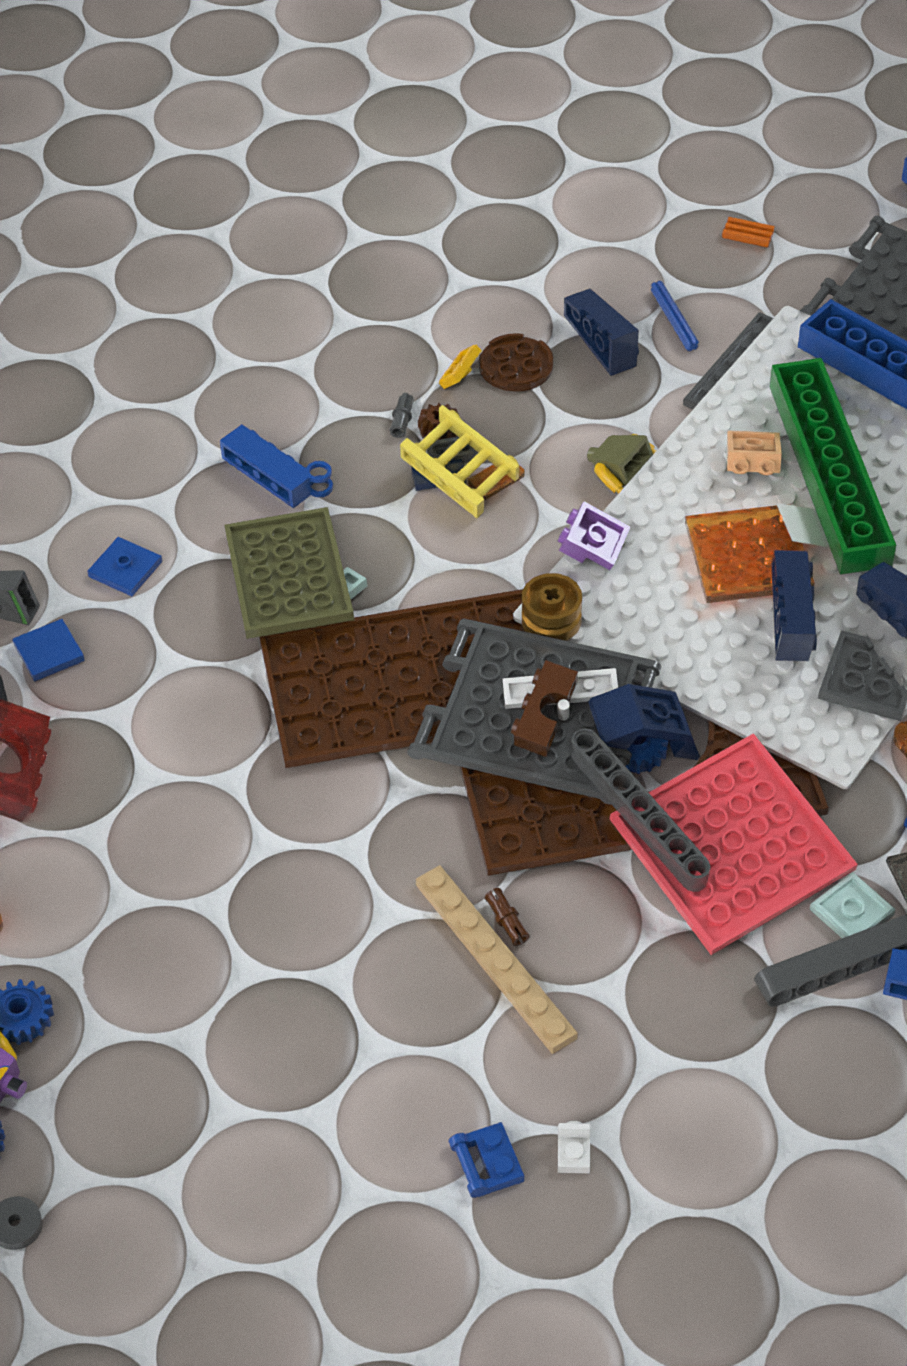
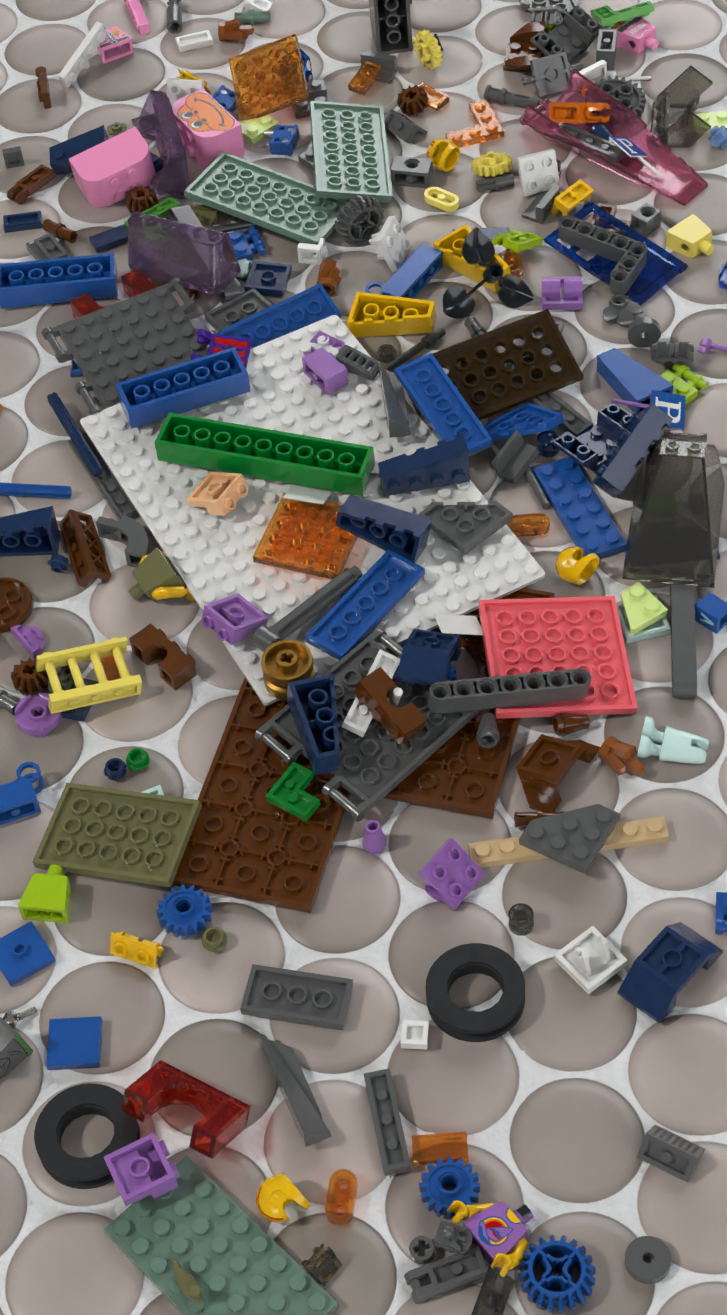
camera: 60 degrees left, 0 degrees up
(53, 594) = (13, 1017): none -> clear smoke hand
(64, 989) = (434, 1146): none -> clear orange tile
(68, 839) = (295, 1091): none -> dark grey wedge
(71, 930) = (387, 1122): none -> dark grey plate
(149, 1196) = (670, 1152): none -> dark grey panel
(170, 638) = (132, 949): none -> yellow hinge
(179, 797) = (297, 996): none -> dark grey plate
(182, 912) = (414, 1034): none -> white plate
(193, 554) = (47, 897): none -> lime torso
(213, 703) = (214, 939): none -> olive plate
(230, 665) = (173, 914): none -> blue gear
(261, 980) = (475, 1025): none -> black tyre
(349, 1033) = (590, 960): none -> white plate
(363, 944) = (518, 913): none -> clear smoke wheel
(369, 538) = (115, 764): none -> dark blue plate
(377, 1106) = (666, 969): none -> dark blue slope
(386, 448) = (38, 725): none -> medium lavender plate
(387, 862) = (450, 874): none -> medium lavender plate
(390, 549) = (137, 759): none -> green plate
(399, 780) = (373, 837): none -> medium lavender cone
(408, 679) = (290, 795): none -> green plate
(488, 405) = (30, 638): none -> medium lavender tile
(495, 653) = (315, 715): none -> dark blue wedge
(495, 952) = (571, 836): none -> dark grey plate
(522, 526) = (153, 644): none -> reddish brown arch
(584, 893) = (547, 766): none -> reddish brown piece
(586, 818) = (488, 732): none -> dark grey cone
(591, 579) = (266, 636): none -> dark grey piece
(593, 379) = (58, 563): none -> dark blue plate
(619, 385) = (78, 547): none -> reddish brown fence
(635, 951) = (620, 757): none -> dark orange rock
(652, 894) = (569, 723): none -> reddish brown cone
(664, 419) = (127, 532): none -> dark grey arch
(680, 1004) = (675, 744): none -> light aqua piece
(686, 638) = (365, 605): none -> blue plate
(711, 730) = (458, 624): none -> white sticker
(767, 309) = (75, 434): none -> dark blue axle
(859, 898) = (641, 608): none -> yellowish green wing
(879, 811) = (574, 567): none -> yellow helmet

